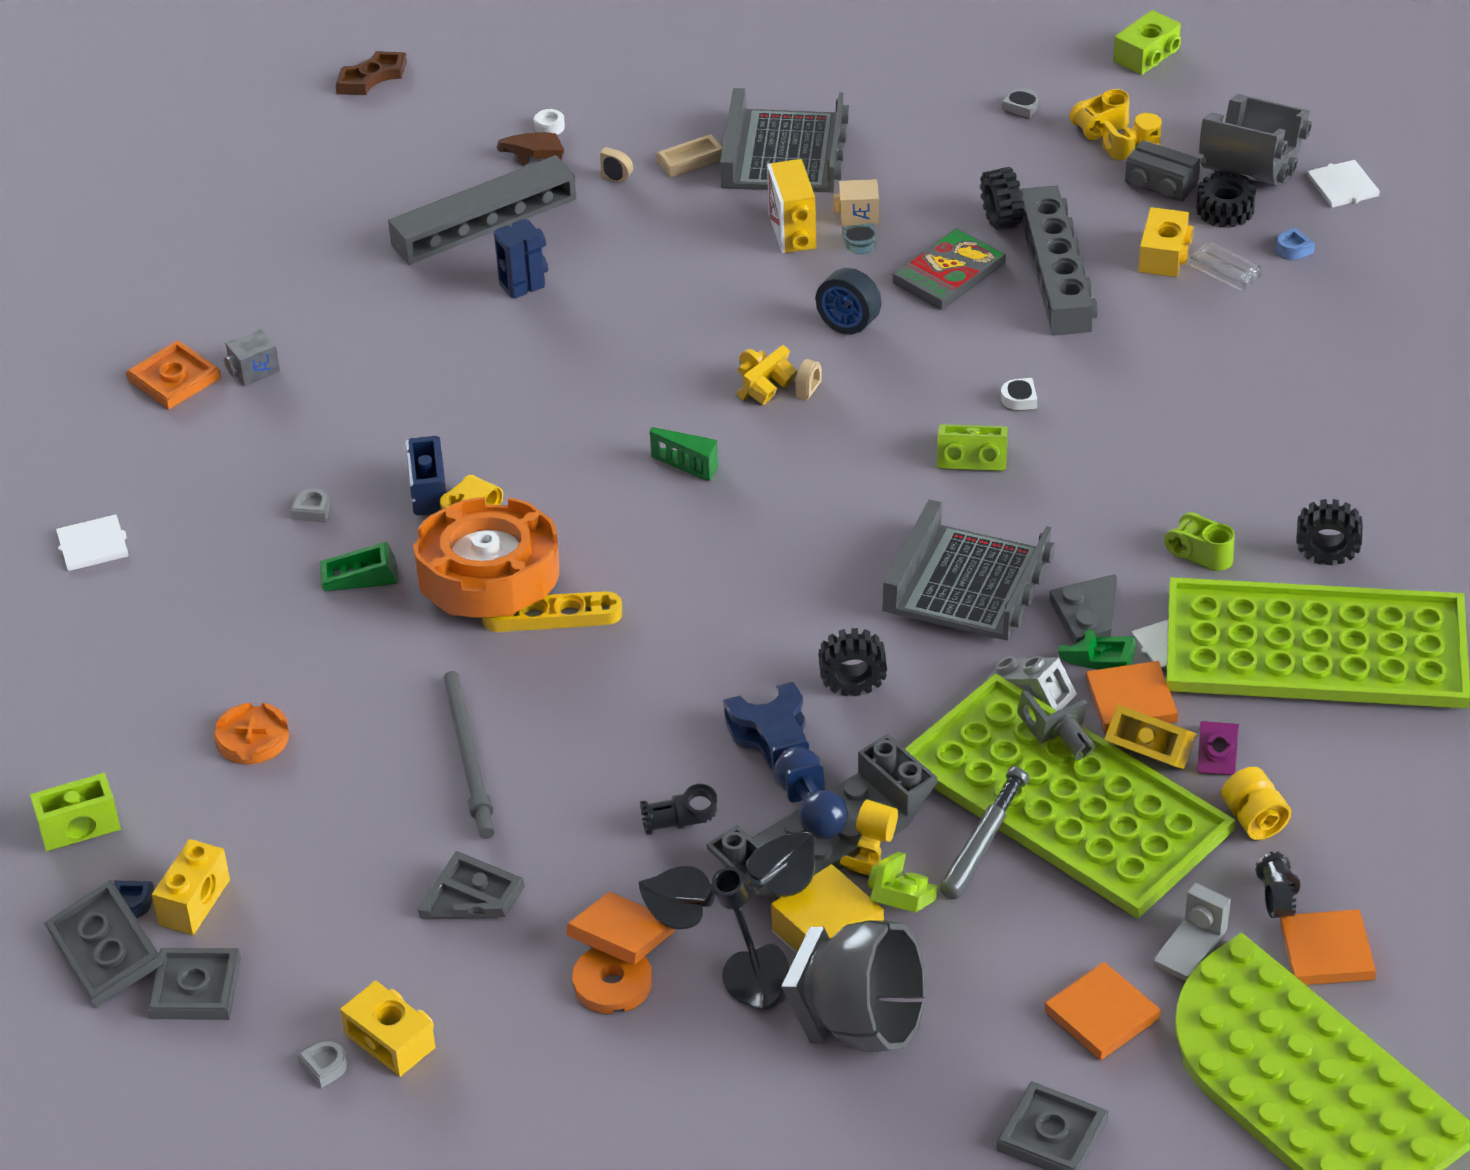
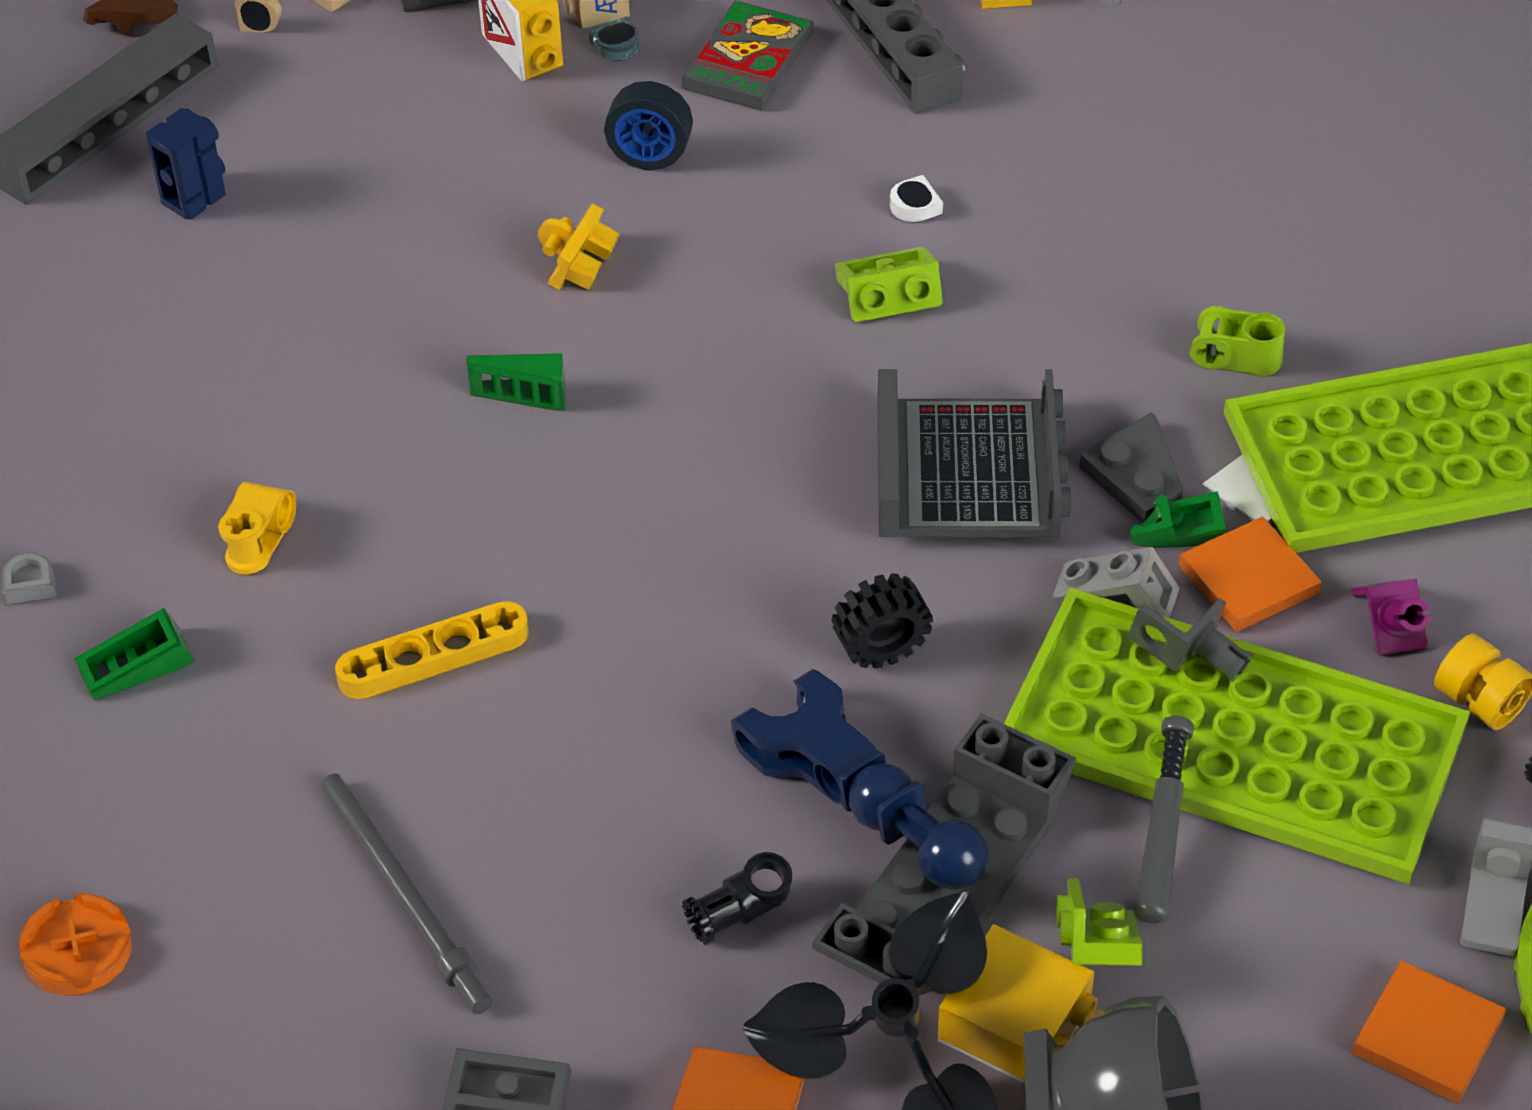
camera: 20 degrees left, 5 degrees up
(425, 474) = (181, 497): dark blue brick -> none
(486, 557) = (318, 597): orange piece -> none
(808, 379) = (637, 242): tan tile -> none
(875, 824) = (1023, 854): yellow leg -> none
(1150, 736) = (1313, 625): yellow brick -> none
(1329, 546) = (1401, 272): black tyre -> none

